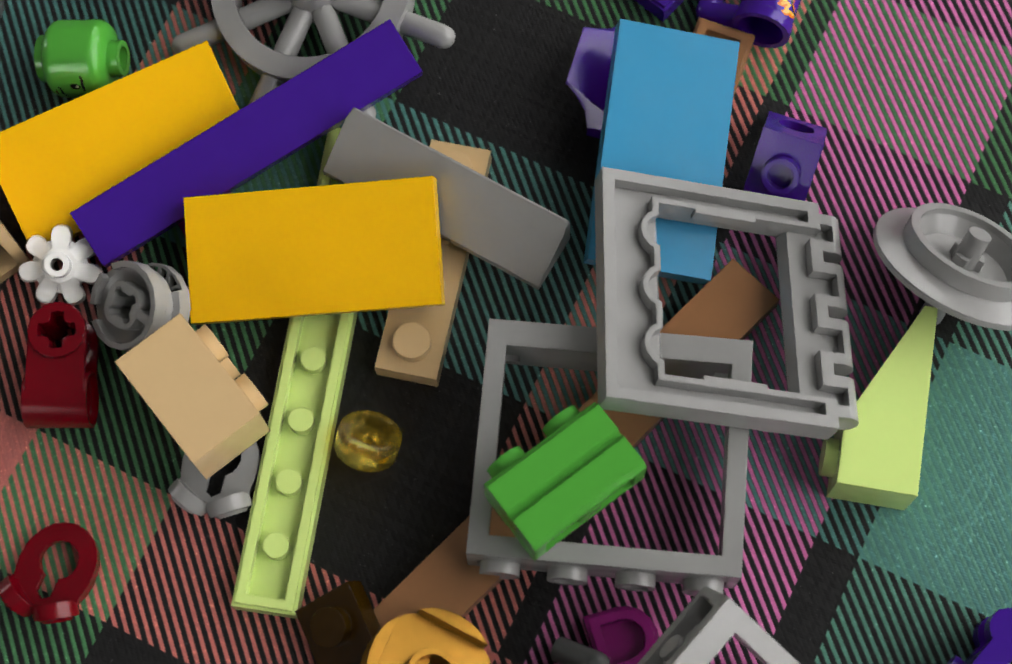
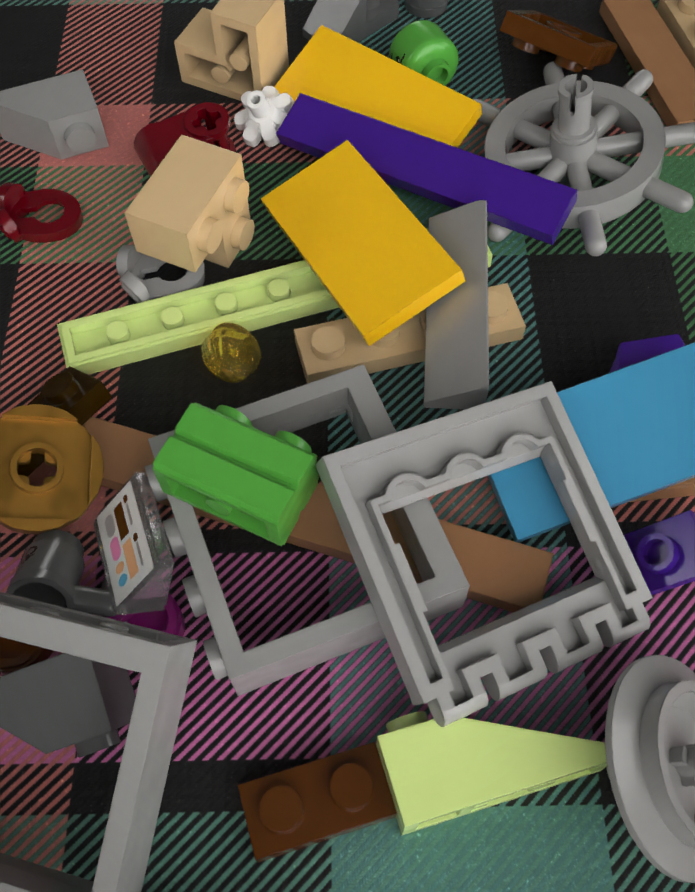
camera: 60 degrees right, 10 degrees down
(137, 302) = (264, 159): light grey wheel -> none
(554, 617) = (134, 549): none -> slope
(850, 564) = (316, 801): none -> reddish brown plate

